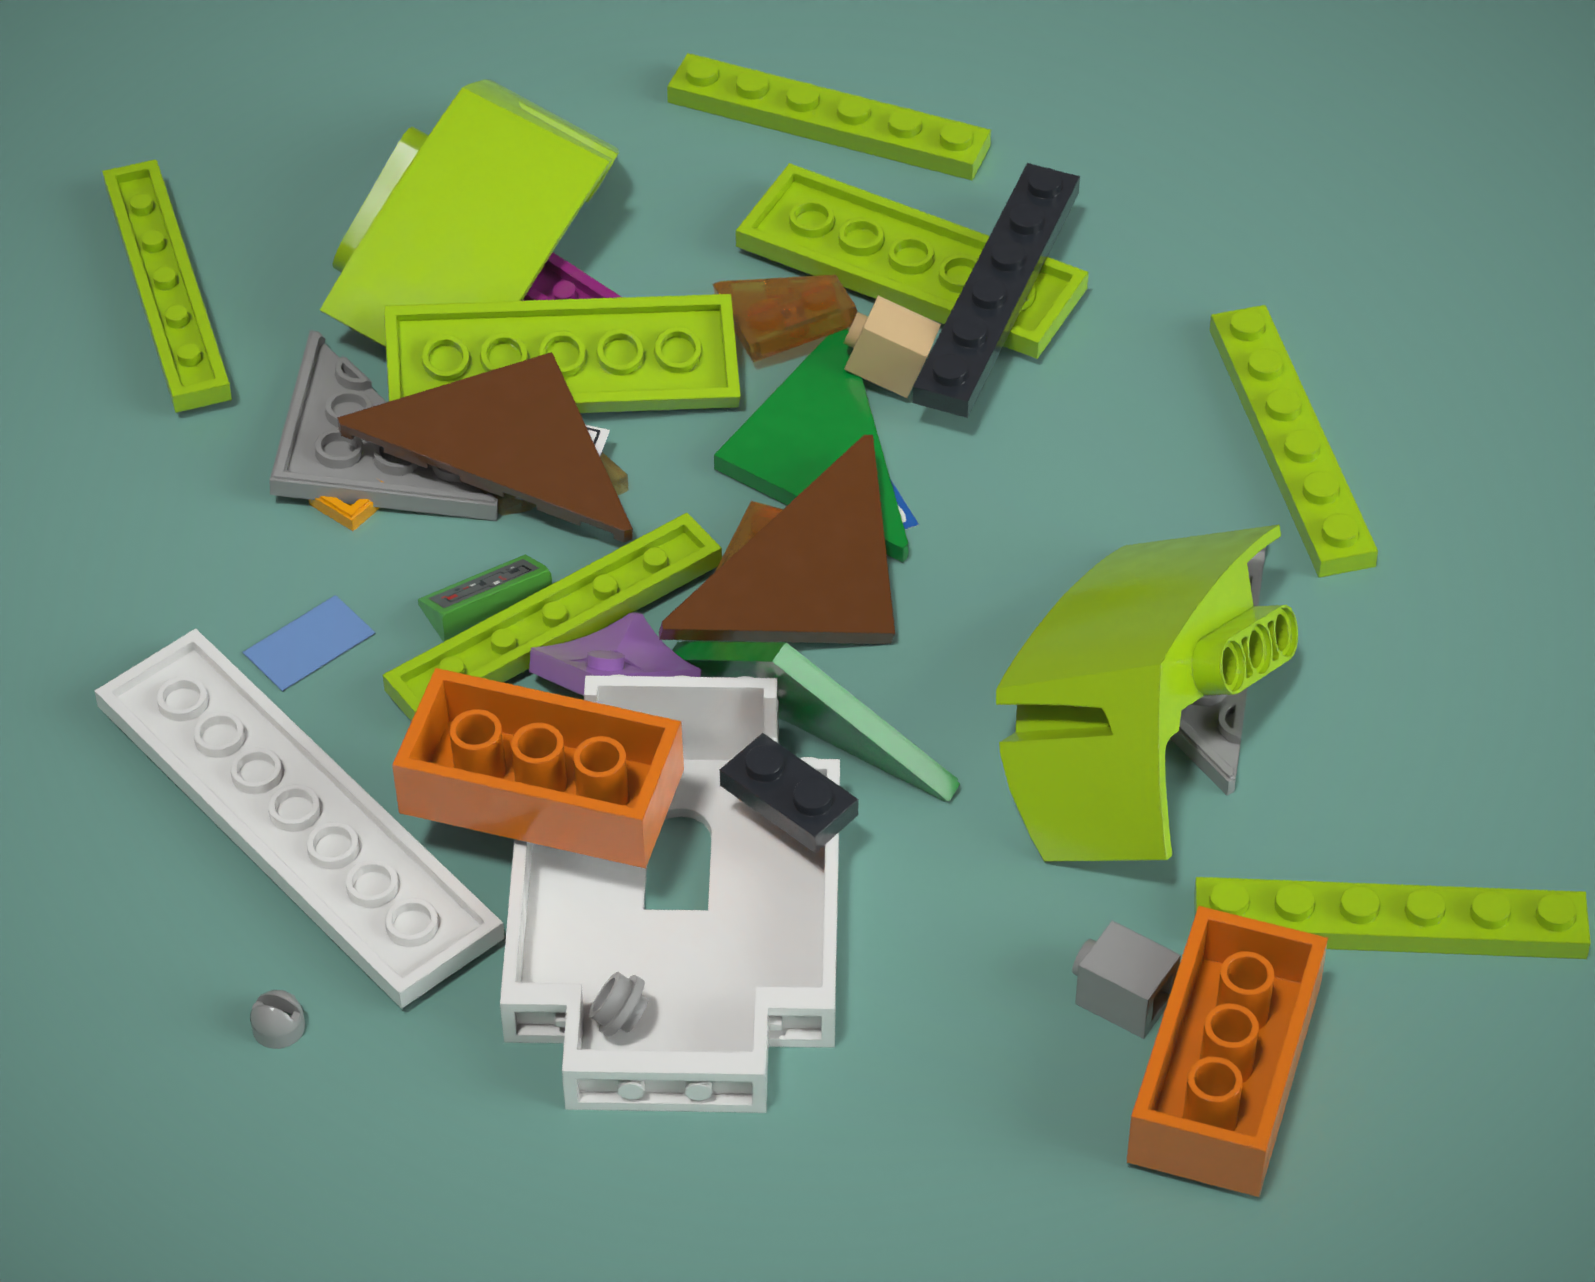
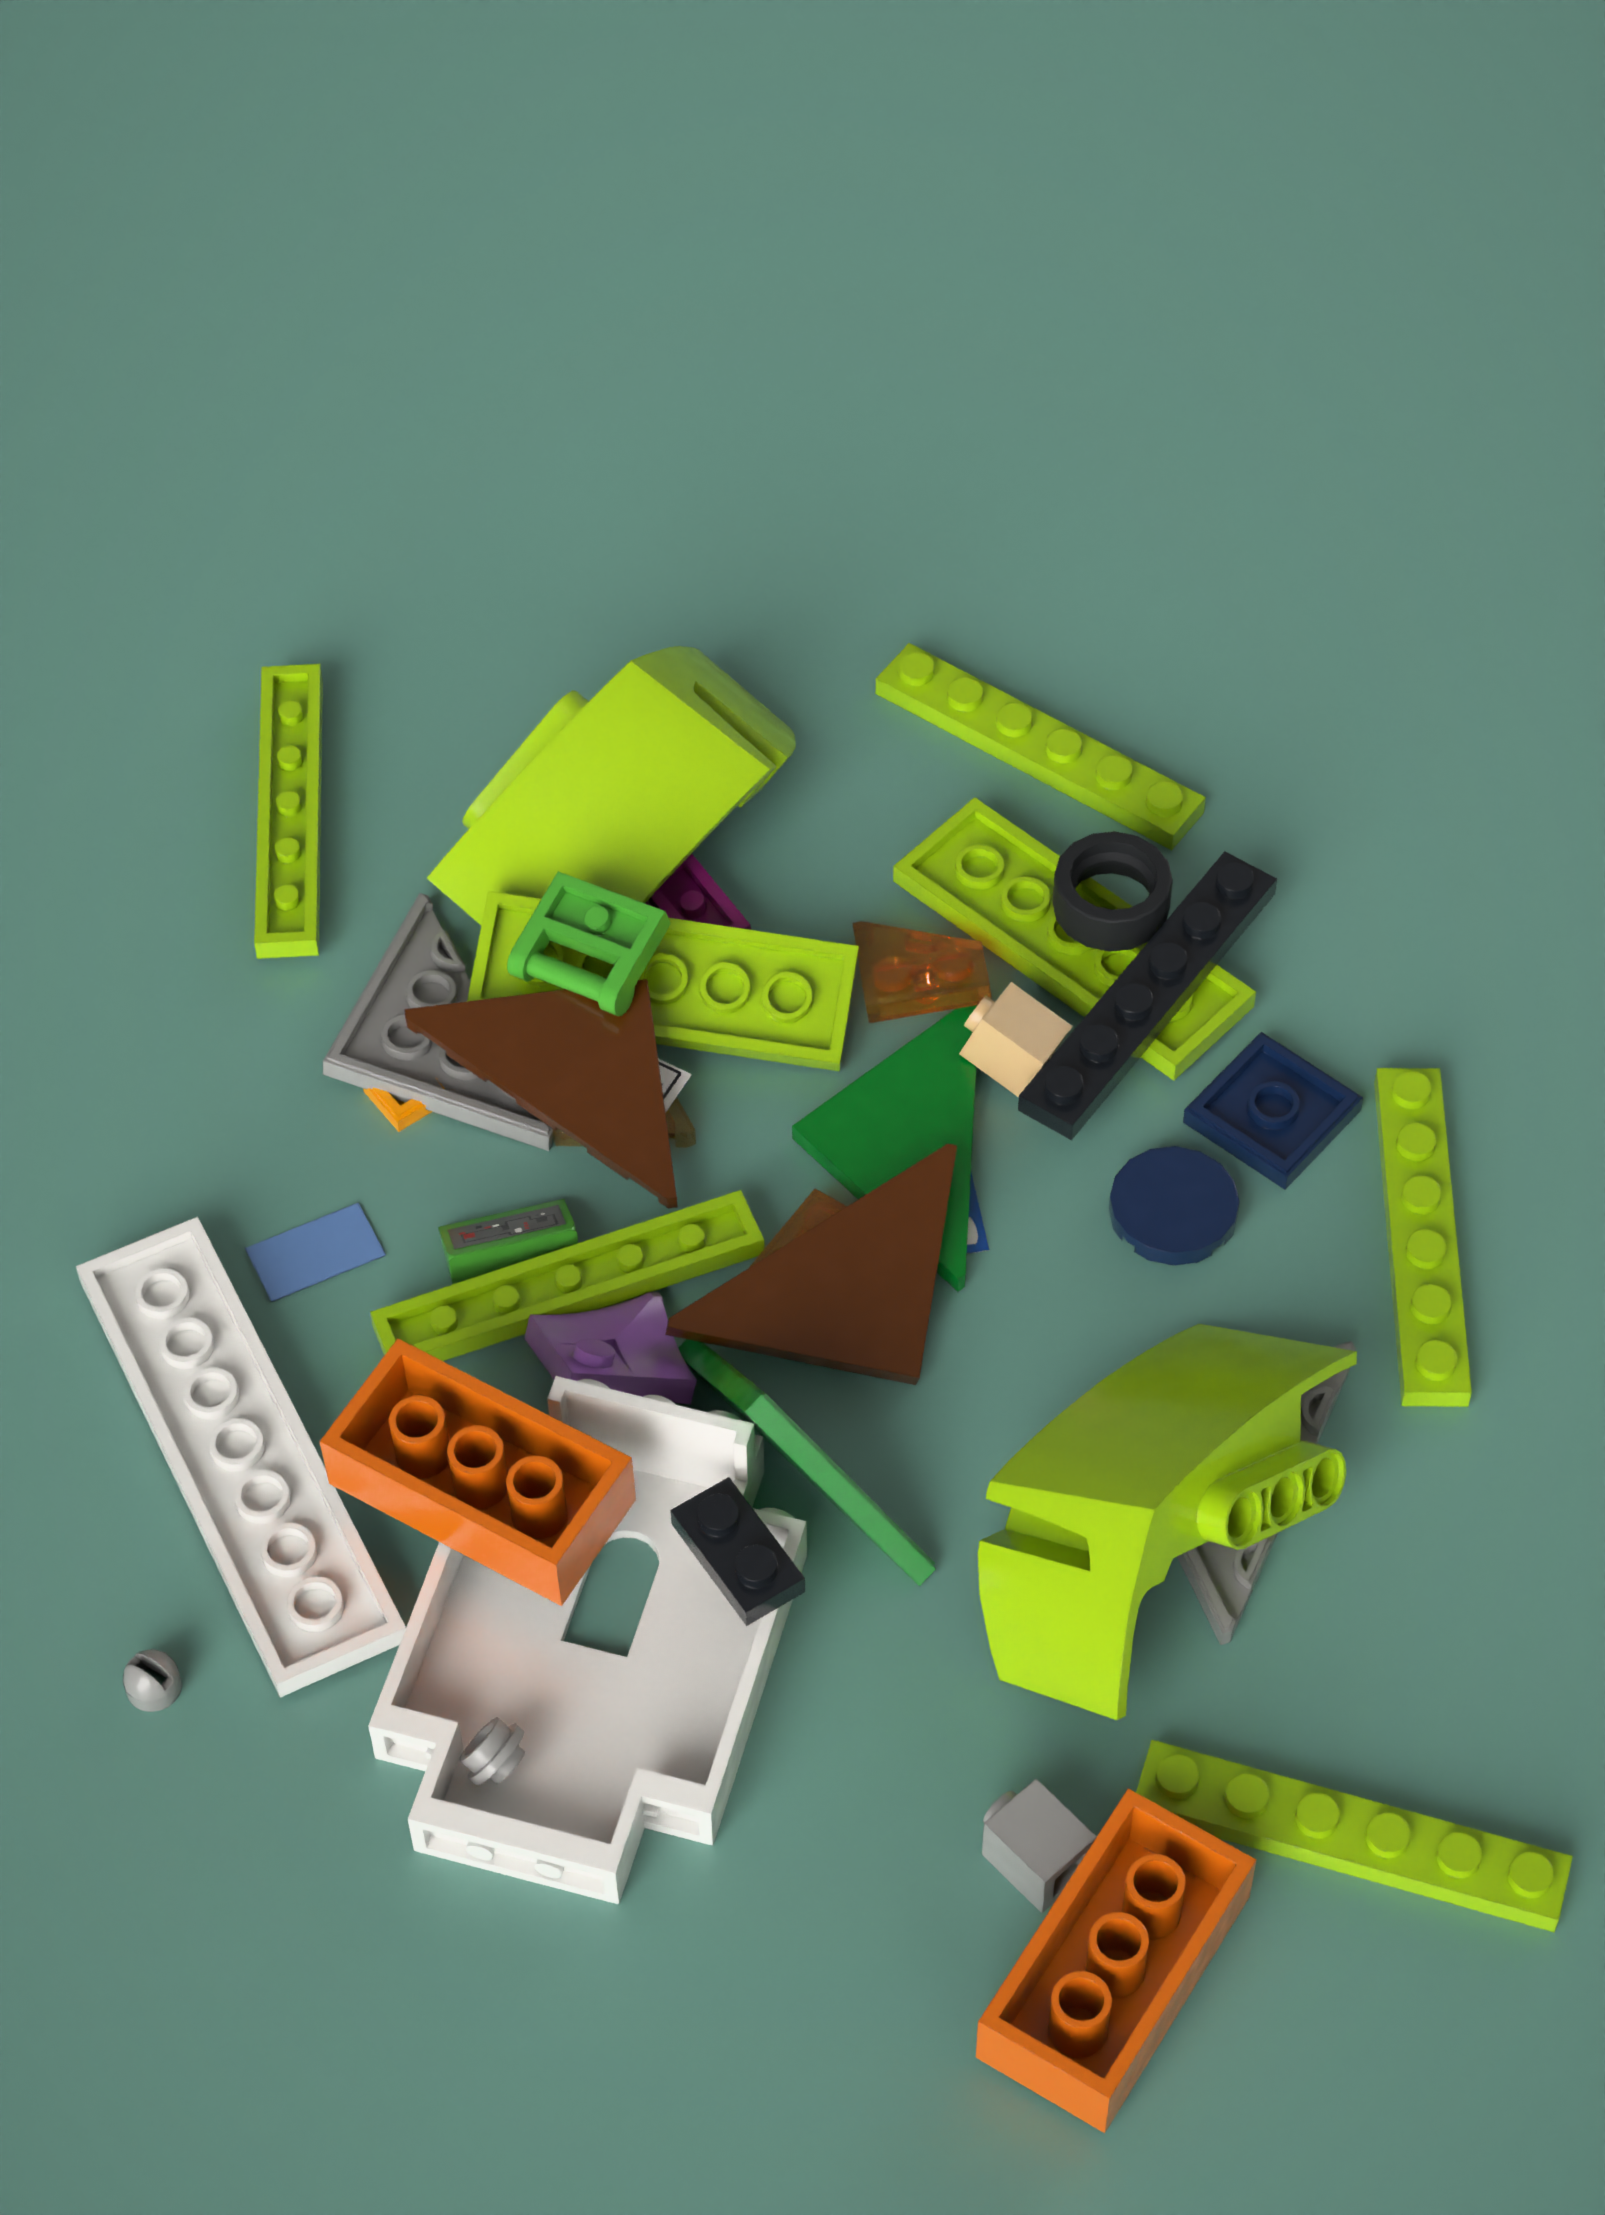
camera: 15 degrees right, 5 degrees up
(495, 312) = (596, 925): none -> bright green plate
(940, 239) = (1119, 855): none -> black tyre
(1071, 456) = (1174, 1205): none -> dark blue tile
(1130, 366) = (1273, 1110): none -> dark blue tile

